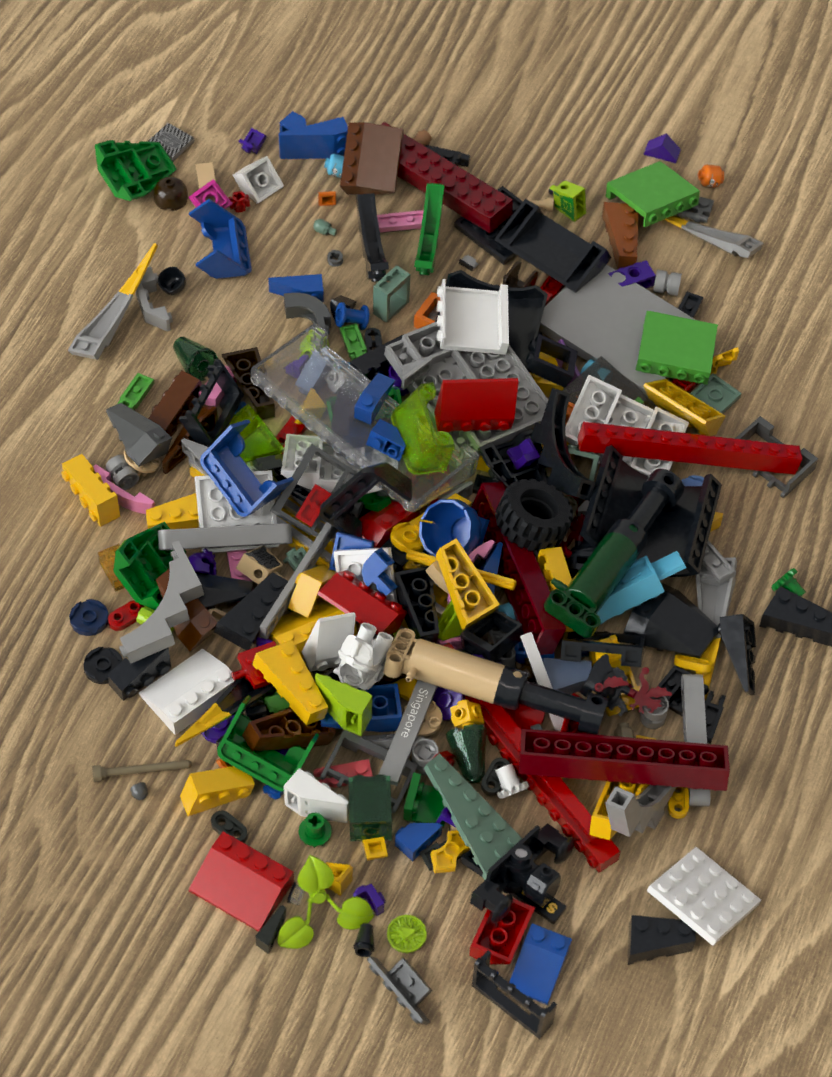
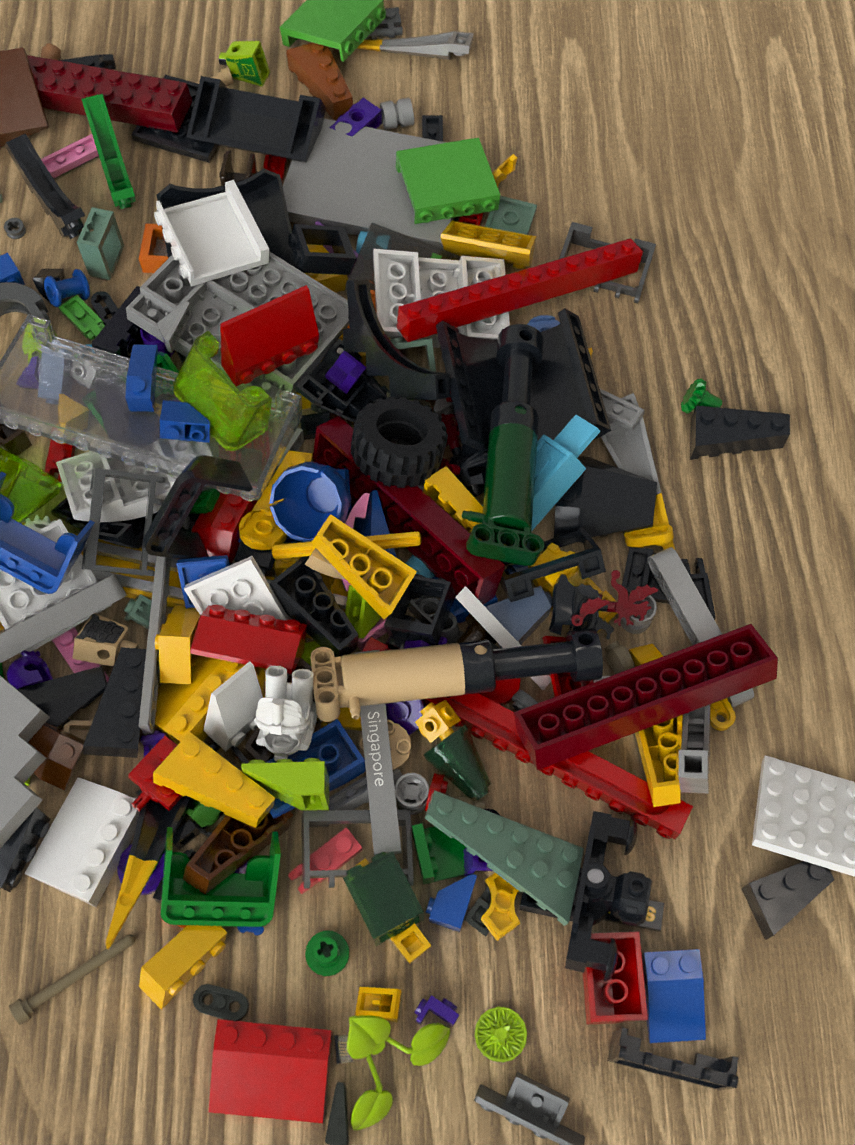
camera: 25 degrees left, 10 degrees up
(139, 791) = (86, 1009): dark grey hinge -> none
(267, 463) = (50, 512): pearl dark grey slope -> none
(308, 796) = (305, 917): white slope -> none
(311, 507) = (130, 544): red hinge -> none
(364, 941) = (457, 1072): black cone -> none
(374, 572) = (248, 595): brick -> none
(468, 262) = (169, 174): light grey piece -> none
(491, 778) = (503, 778): pearl dark grey plate -> none
(509, 781) = (526, 780): white gear -> none
(739, 639) = (683, 487): black wedge -> none

